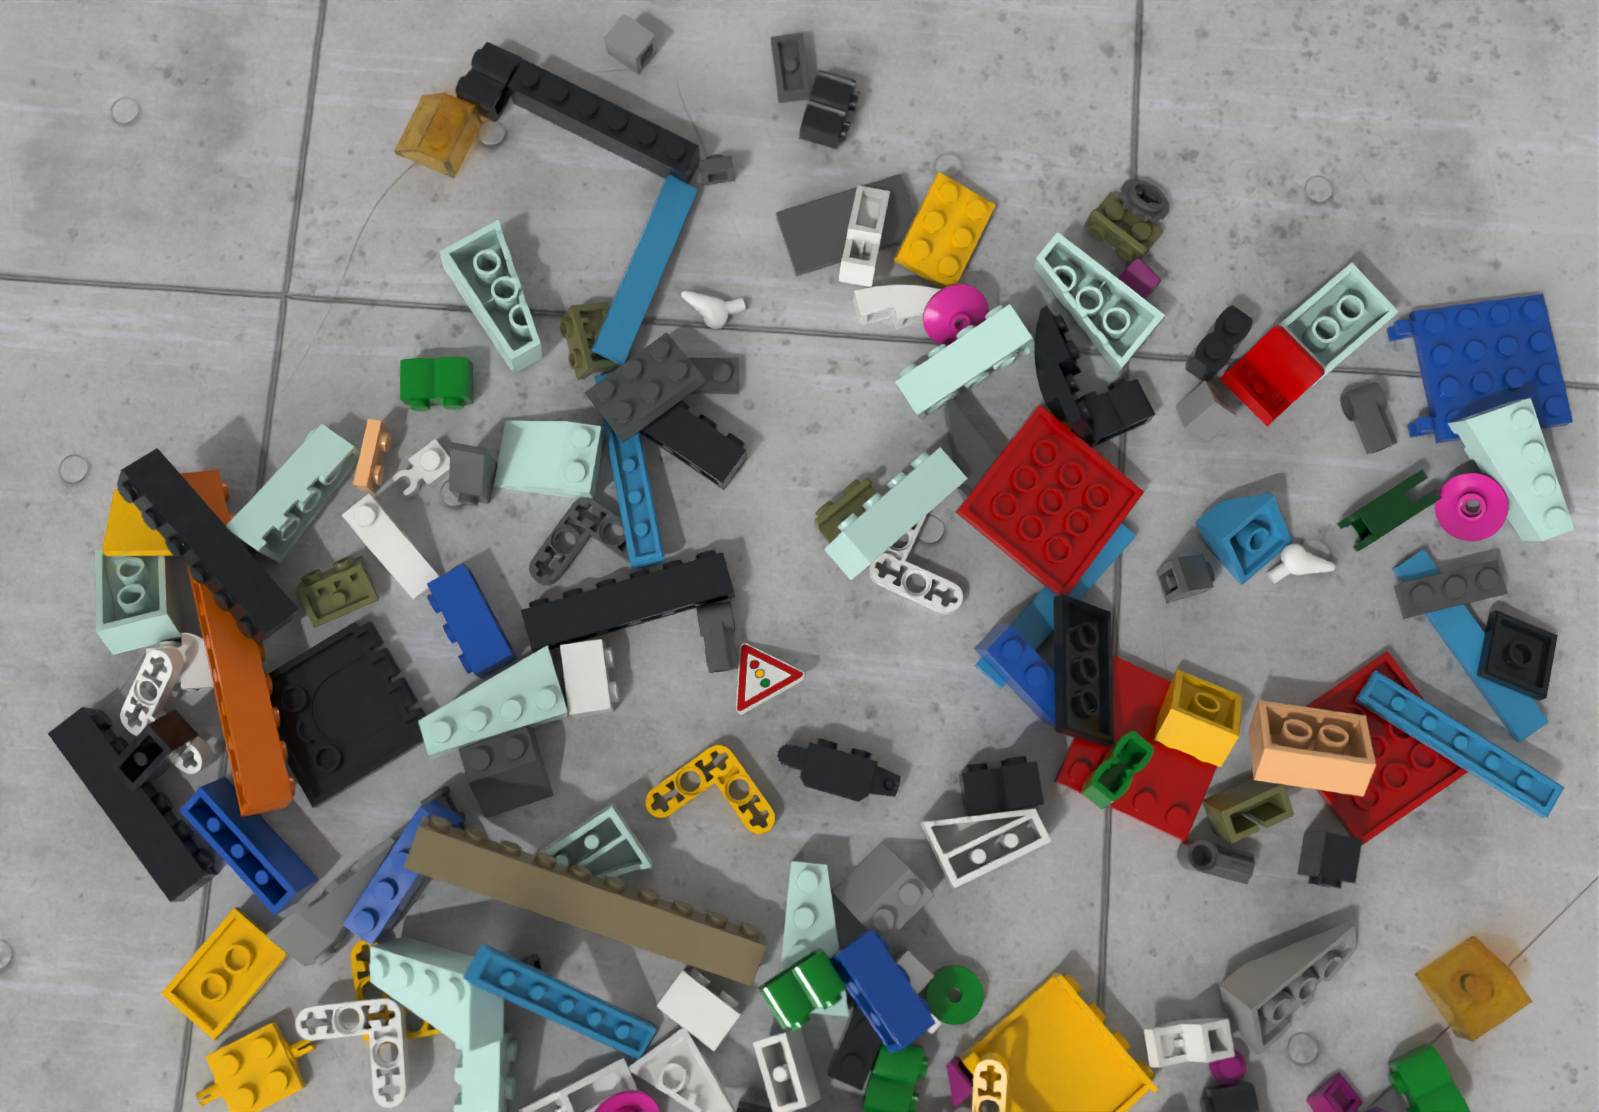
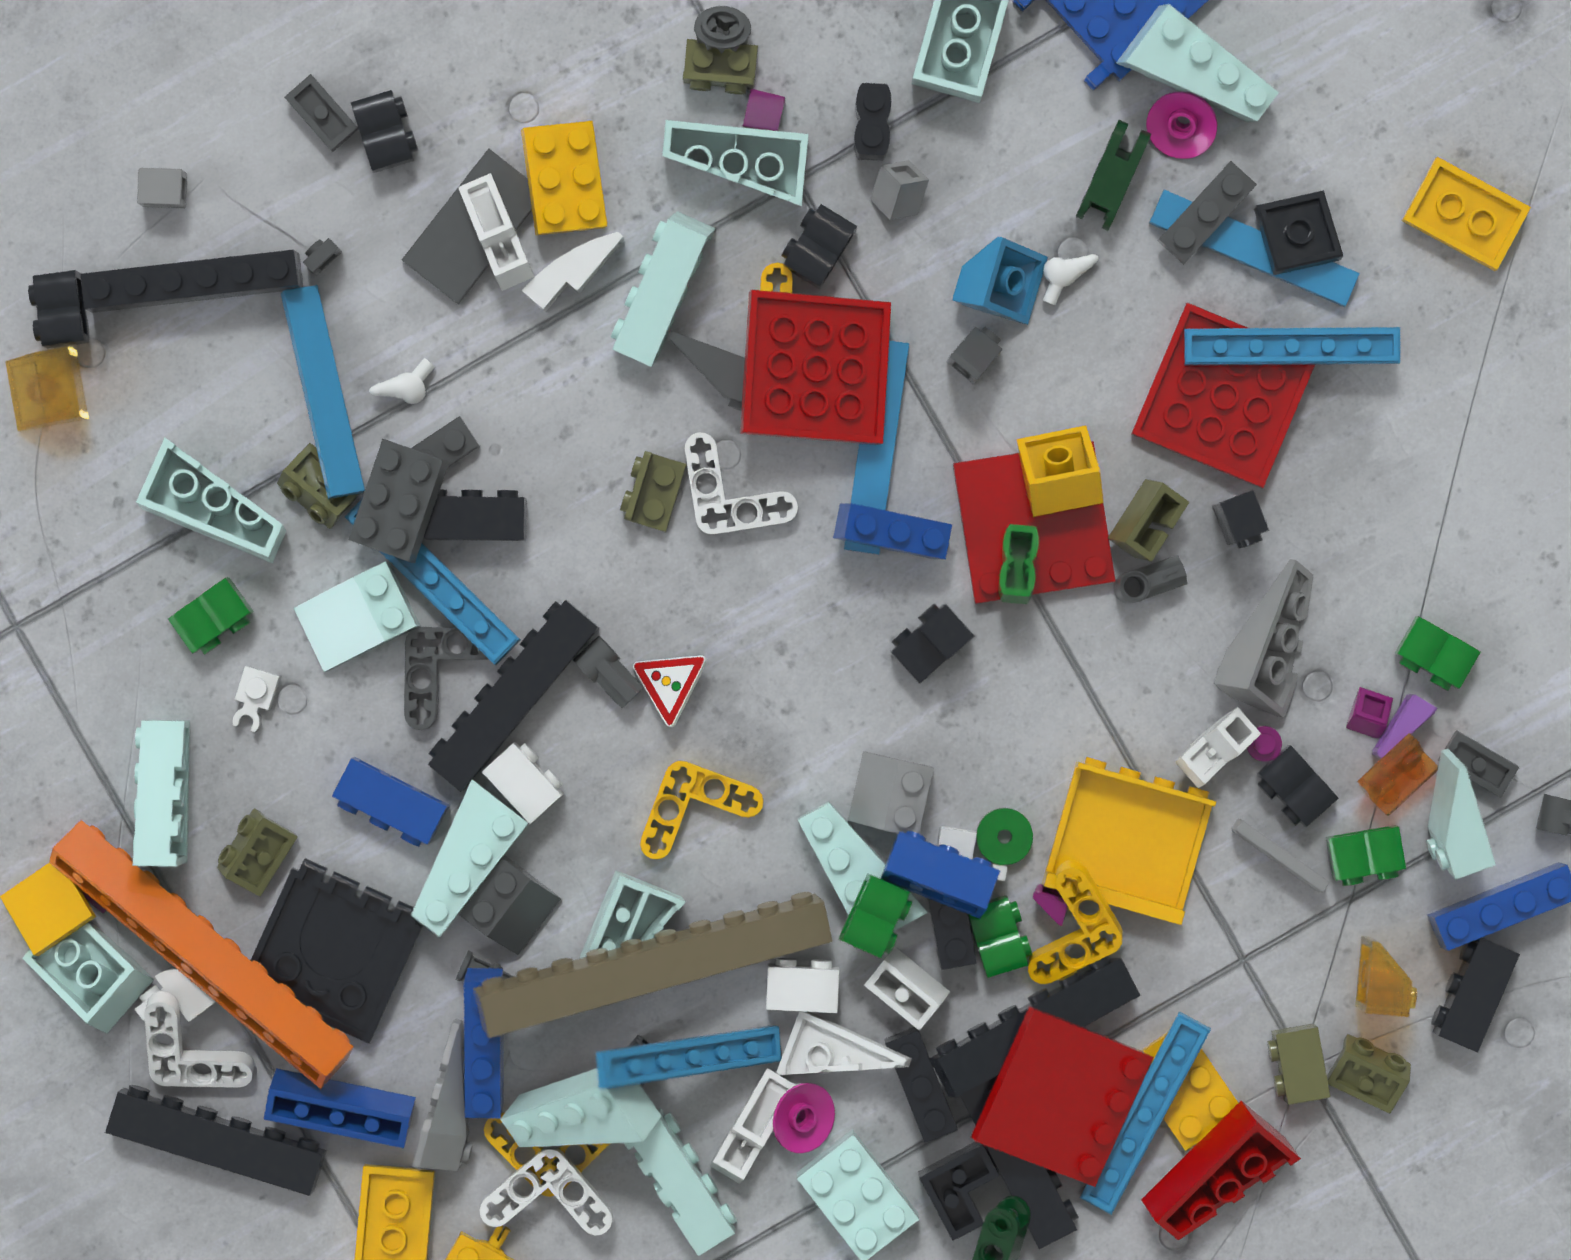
camera: 30 degrees left, 10 degrees up
(154, 750) = (208, 1085): black brick -> none
(206, 546) = (129, 891): black brick -> none
(370, 469) = (209, 731): light nougat plate -> none
(390, 545) = (276, 783): white slope -> none
(471, 474) = (302, 678): dark grey slope -> none
(839, 772) = (789, 718): black hinge -> none
(894, 513) = (690, 467): light aqua wedge -> none
(948, 306) = (623, 250): dark pink dish -> none
(983, 842) = (946, 697): white wedge -> none
(1056, 371) = (742, 242): black slope -> none
(1083, 671) = (937, 497): black tile -> none
(1272, 374) = (936, 123): red bracket -> none
(1311, 748) = (1166, 438): light nougat brick -> none
(1367, 409) = (1037, 94): dark grey piece -> none
(1473, 989) = (1425, 546): clear yellow slope -> none

